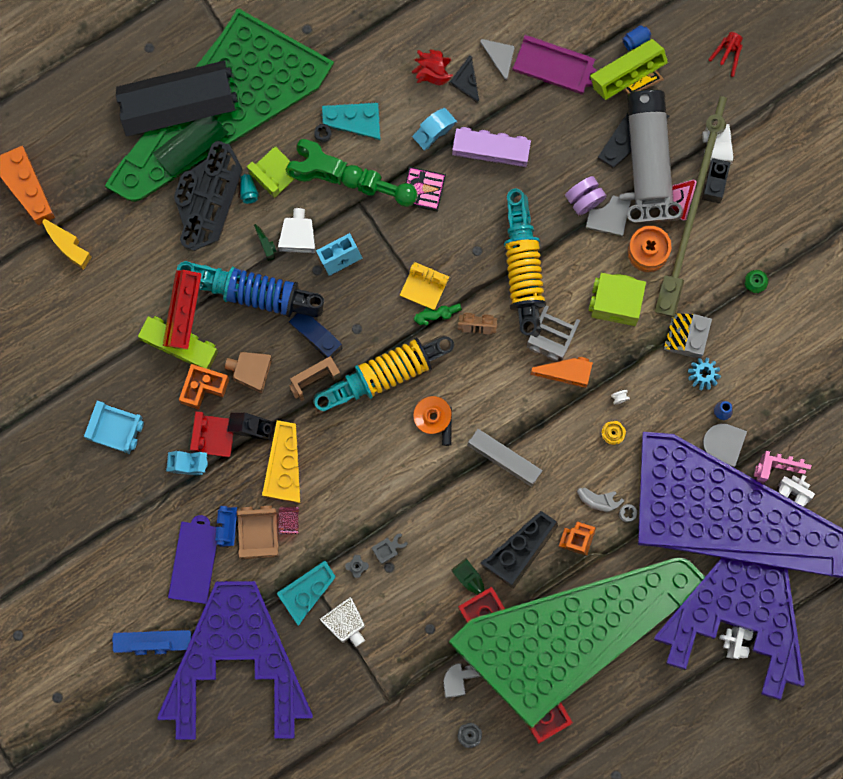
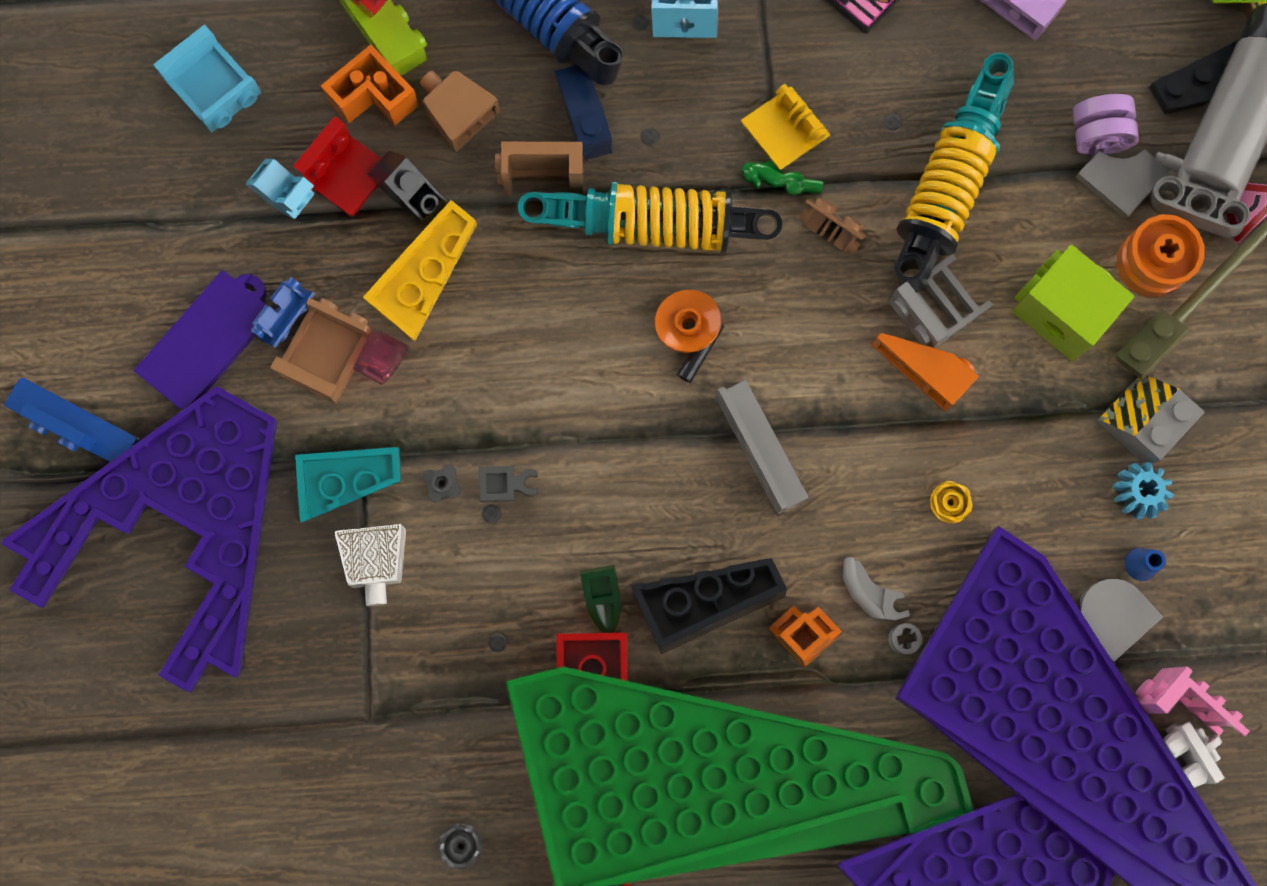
camera: 25 degrees right, 0 degrees up
(454, 680) = (485, 746): light grey brick -> none
(620, 397) = (991, 453): white bush -> none

